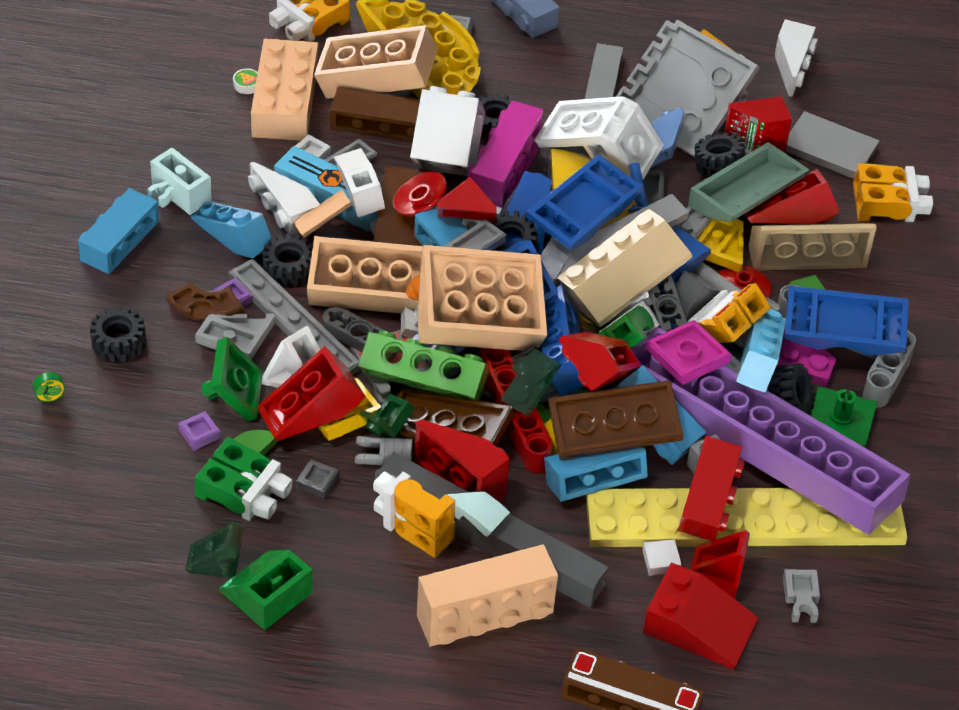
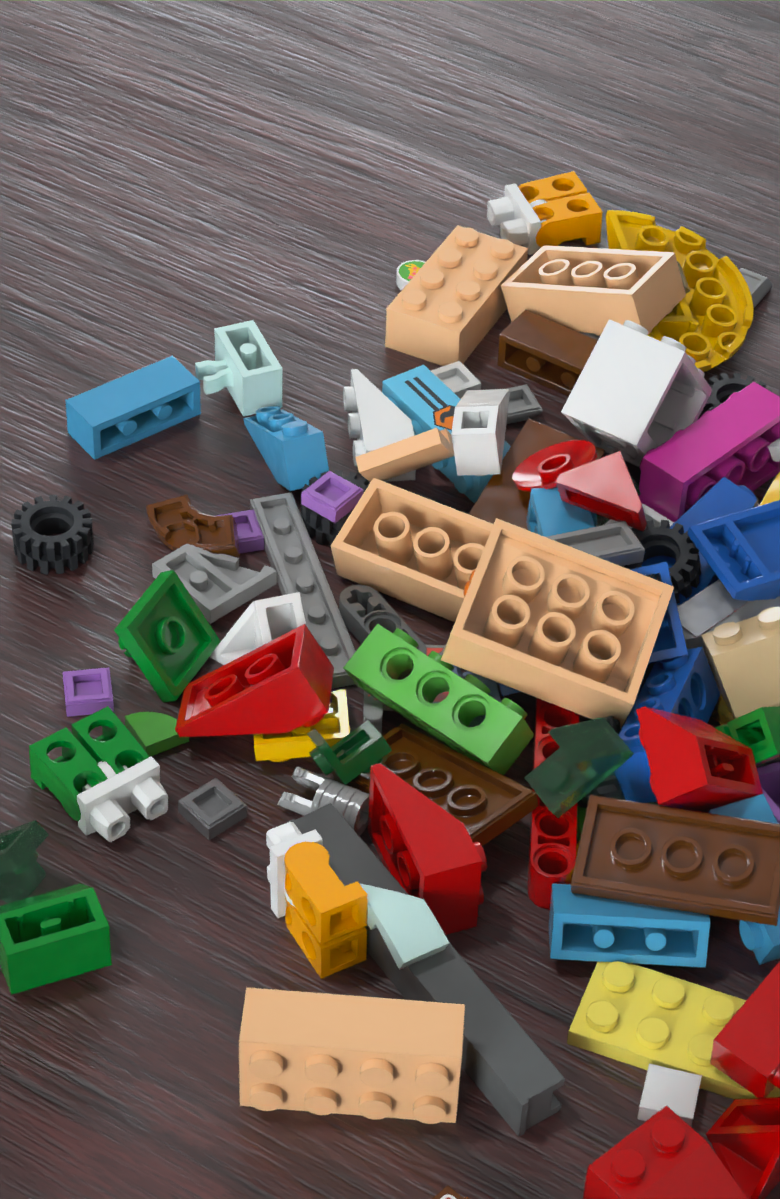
camera: 25 degrees right, 5 degrees down
(286, 255) = (331, 496): none -> medium lavender tile

